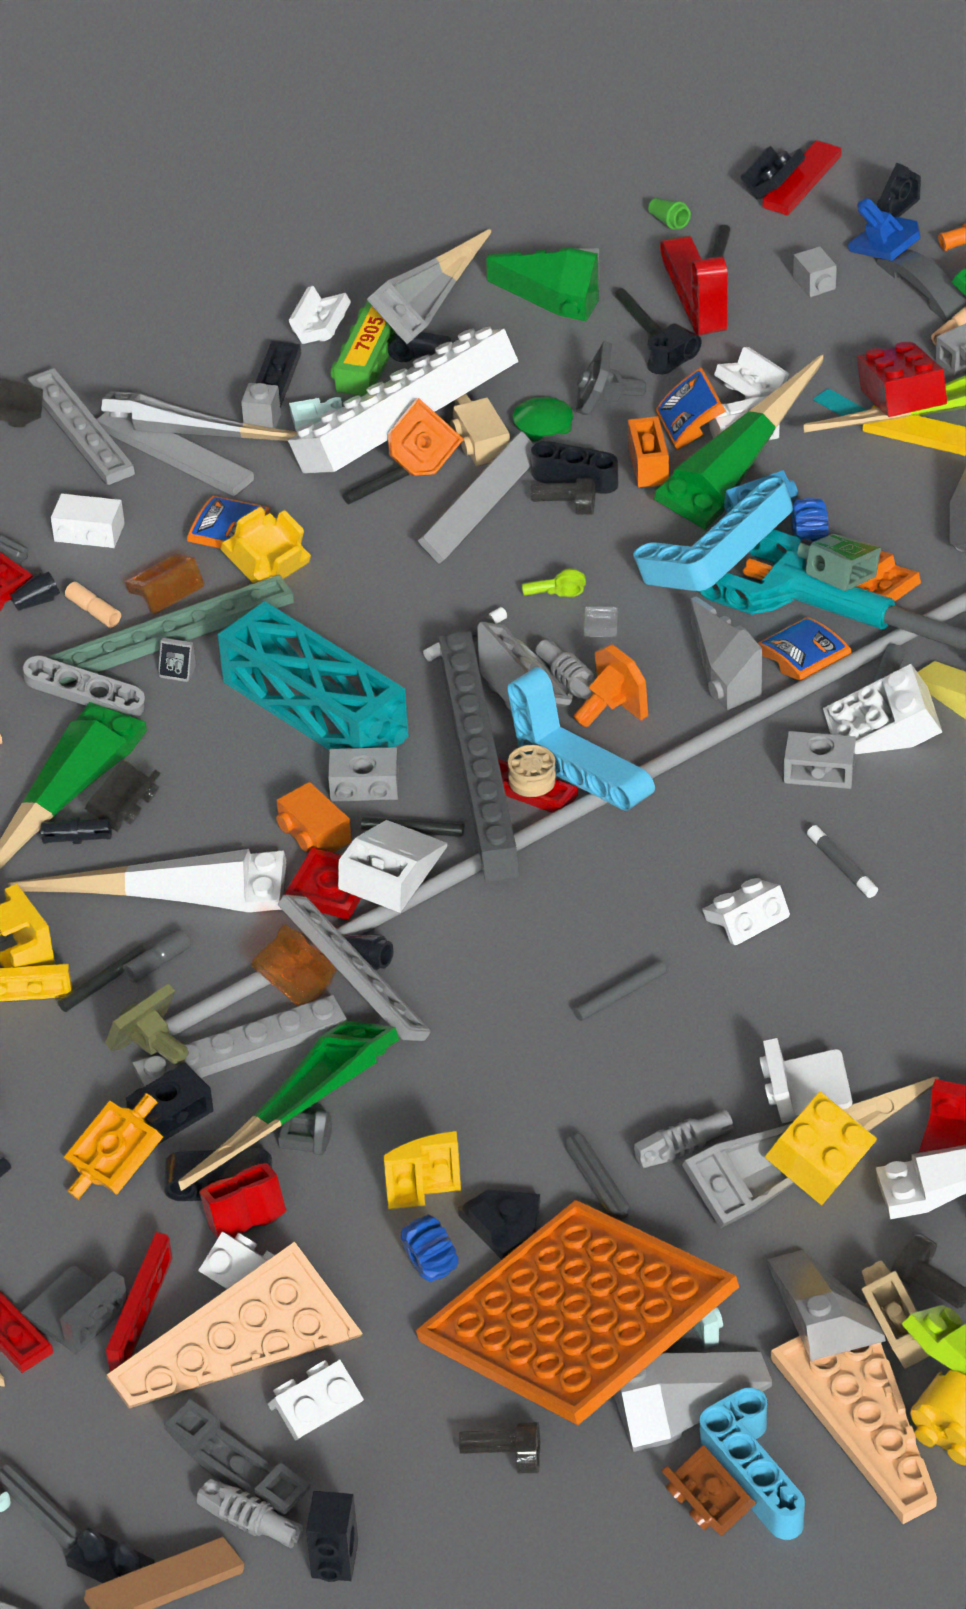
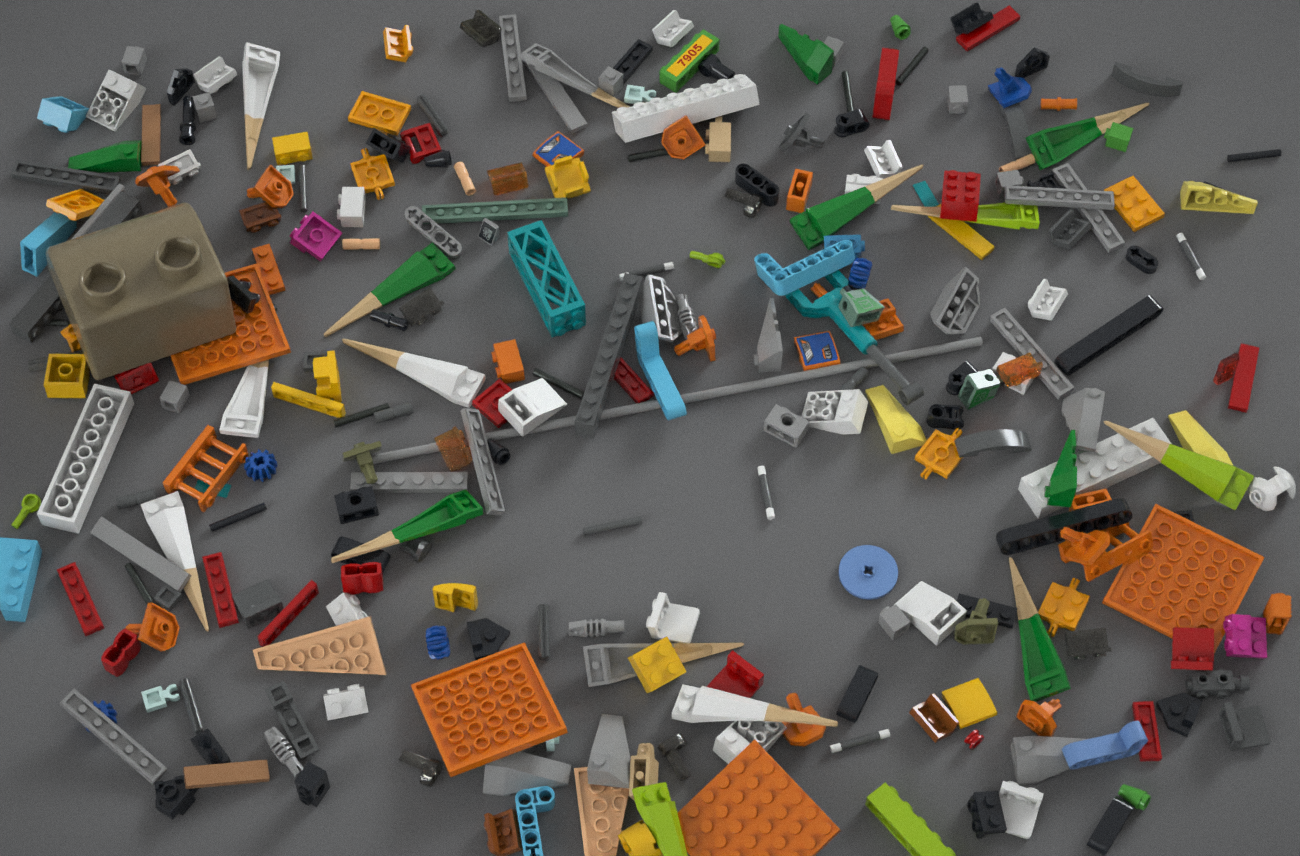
camera: 20 degrees right, 15 degrees up
(87, 520) = (486, 123): white brick -> none
(113, 1147) = (316, 520): light orange plate -> none
(363, 774) = (541, 335): light grey brick -> none
(415, 296) = (721, 42): light grey plate -> none
(478, 498) = (695, 186): light grey tile -> none
(531, 773) = (632, 376): tan wheel -> none
(543, 417) = (759, 143): green dish -> none
(601, 621) = (720, 290): clear tile -> none
(688, 408) = (837, 169): slope -> none
(748, 910) = (700, 504): white bracket -> none

